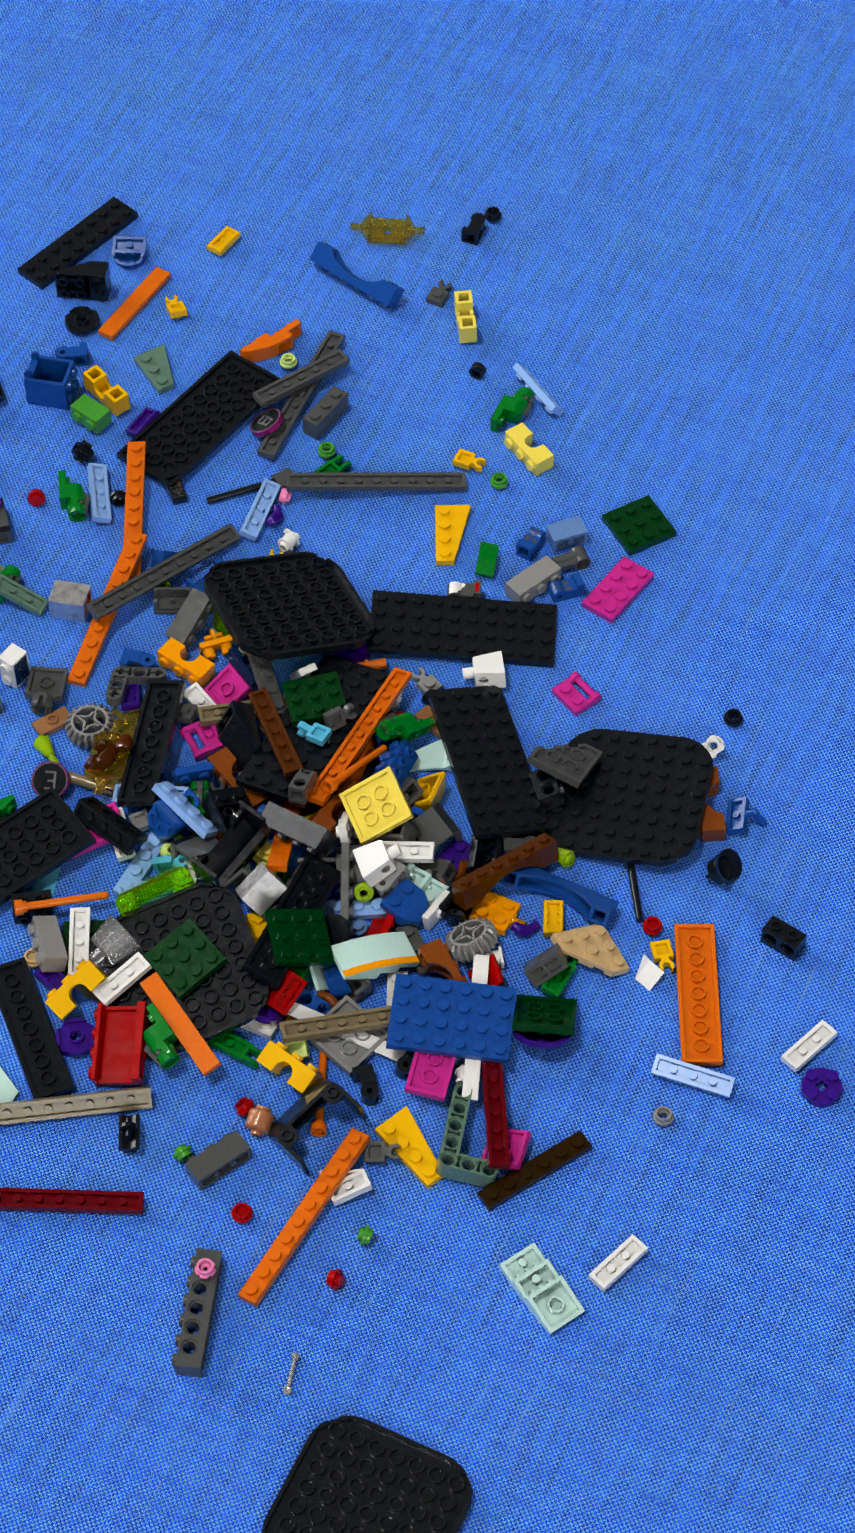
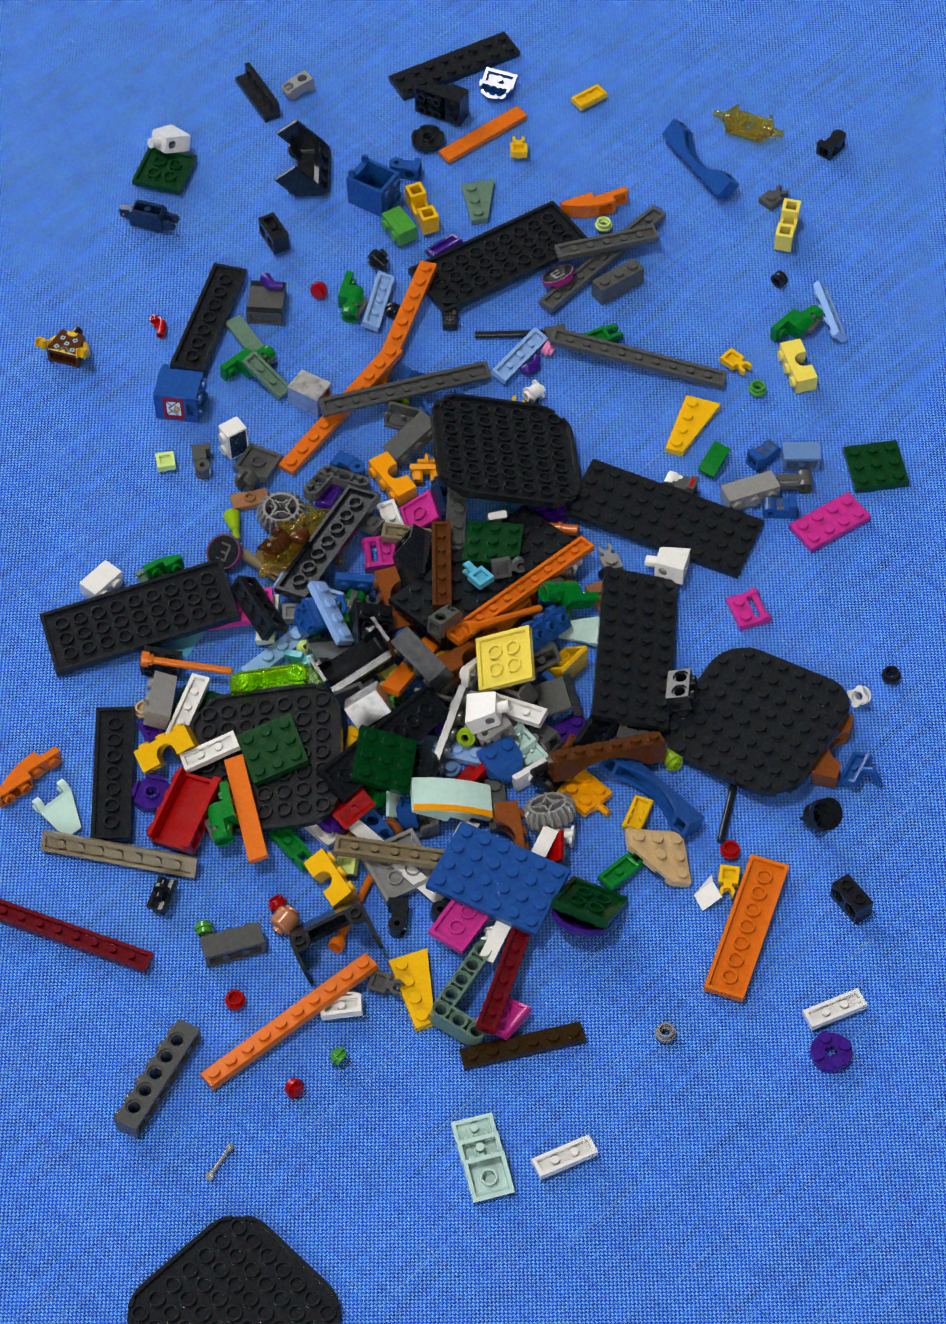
camera: 20 degrees right, 0 degrees up
(112, 942) = (213, 715): clear torso -> none
(205, 1263) = (176, 1034): bright pink plate -> none
(326, 450) = (605, 316): bright green plate -> none
(493, 214) = (855, 135): black plate -> none
(525, 930) = (606, 818): dark purple arm -> none
(545, 965) = (609, 856): dark grey hinge -> none
(566, 762) = (705, 670): dark grey plate -> none
(693, 1076) = (709, 1003): light blue plate -> none

